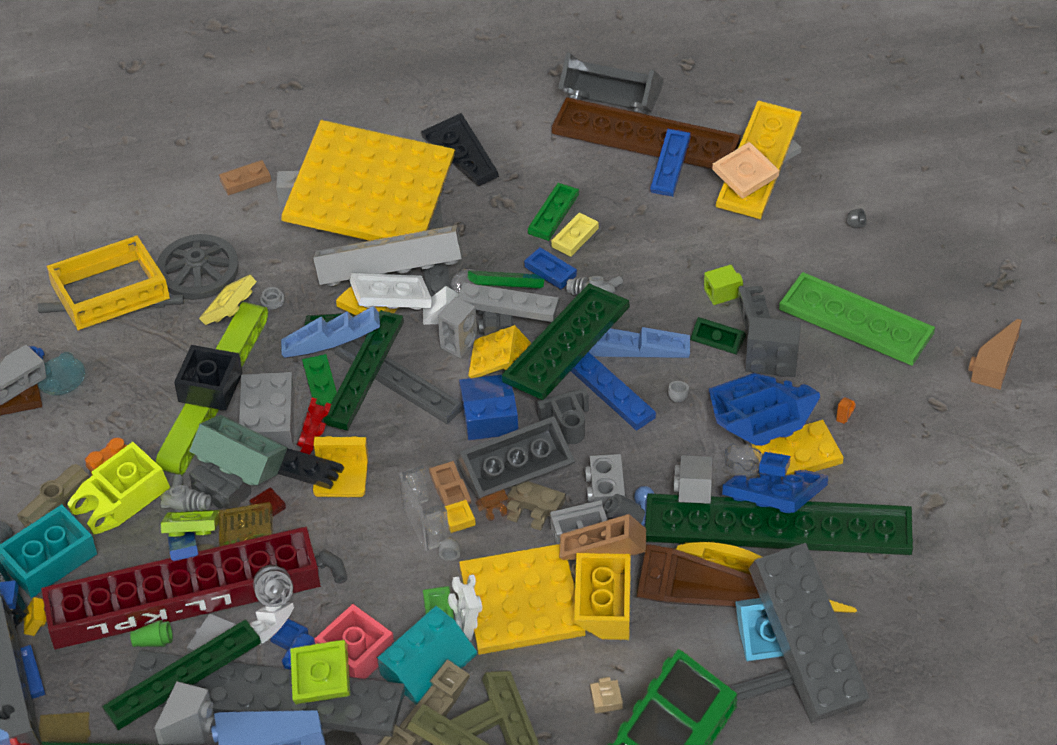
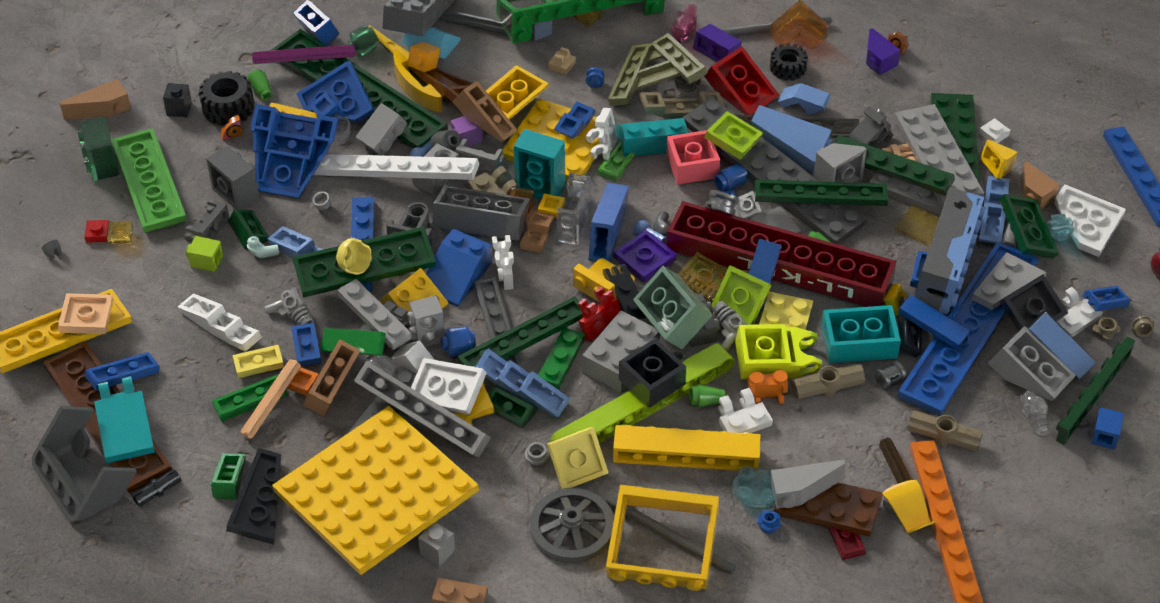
camera: 145 degrees left, 0 degrees up
(112, 425) = (747, 420): none -> white plate
(137, 369) = (685, 448): none -> yellow brick
(139, 543) = (786, 310): none -> light yellow plate
(160, 422) = (704, 395): none -> bright green cone
(325, 518) = (644, 255): none -> dark purple plate
(351, 555) = (643, 225): none -> medium blue bar
(384, 525) = (607, 222): none -> blue slope
(420, 338) = (458, 341): none -> blue head
(443, 427) = (504, 260): none -> white plate
(491, 515) = (539, 164): none -> teal brick
(493, 243) = (331, 377): none -> medium nougat brick
(502, 137) = (228, 477): none -> green slope
(514, 609) = (575, 121): none -> blue slope
(521, 241) = (303, 381): none -> orange plate
(529, 210) = (270, 399): none -> light nougat axle
(548, 115) = (156, 487): none -> black pin
(548, 691) = (595, 77): none -> blue bush
(569, 318) = (353, 256): none -> light yellow hair
(620, 126) = (123, 423): none -> teal tile
(634, 447) = (398, 166): none -> white plate
(652, 245) = (218, 322): none -> white slope
(682, 320) = (260, 250): none -> light aqua arm
(740, 582) = (423, 56): none -> light orange brick
(818, 262) = (120, 232): none -> clear yellow plate
(837, 578) = (363, 39): none -> clear green head
(842, 257) = (96, 231): none -> red plate
(866, 513) = (303, 54): none -> magenta axle
(877, 468) = (260, 84): none -> bright green cone
(880, 441) = (226, 96): none -> black tyre
(900, 559) = (316, 23): none -> blue brick
(926, 299) = (97, 148): none -> clear green brick
(928, 398) = (177, 100): none -> black brick

